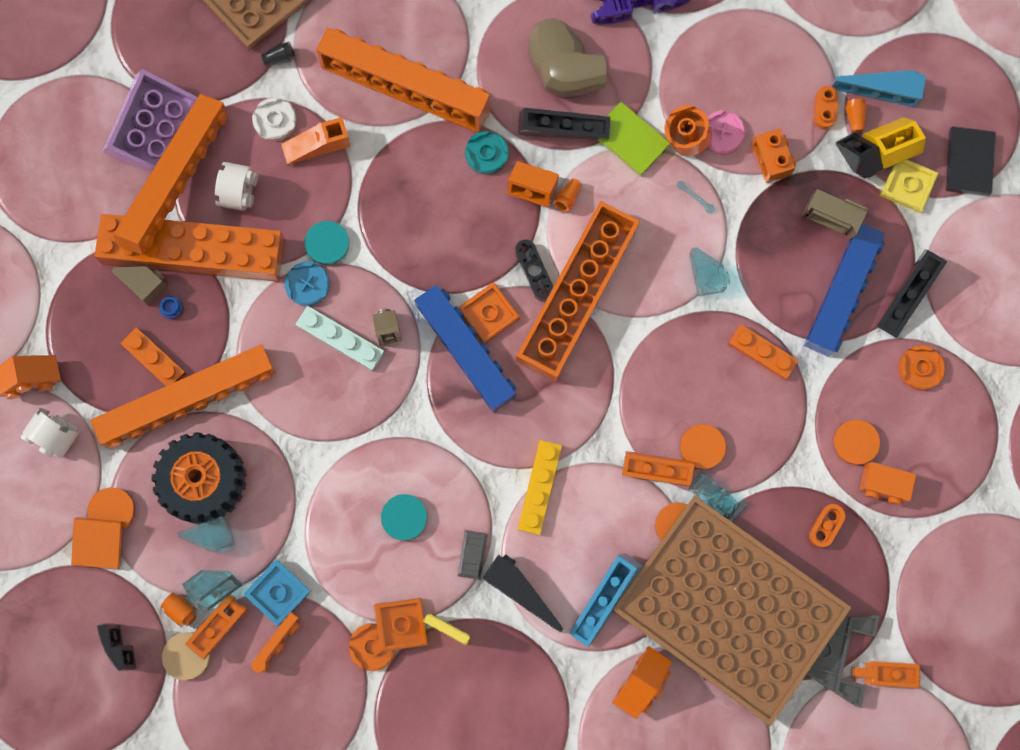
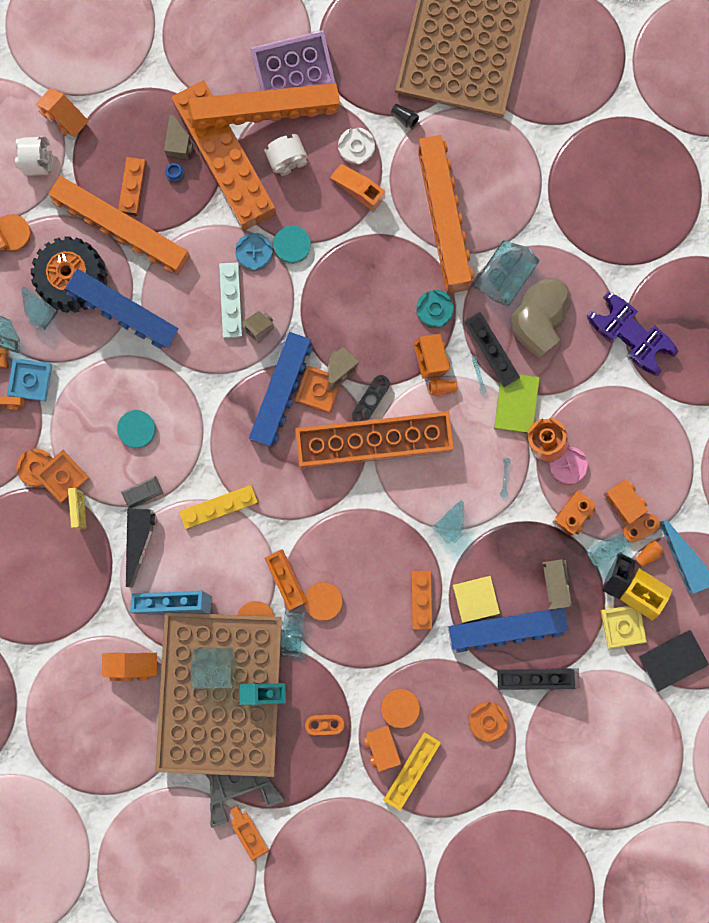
camera: 60 degrees right, 5 degrees up
(273, 446) = (121, 309): none -> blue brick
(483, 276) = (340, 368): none -> dark tan slope
(499, 63) = (506, 272): none -> clear light blue slope
(596, 160) = (483, 389): none -> clear light blue hinge
(704, 596) = (212, 668): none -> clear light blue slope
(762, 563) = (262, 694): none -> teal slope
(794, 102) = (626, 502): none -> orange brick
(795, 300) = (476, 599): none -> light yellow tile
(828, 148) = (608, 549): none -> clear light blue slope
(926, 470) = (411, 771): none -> yellow plate

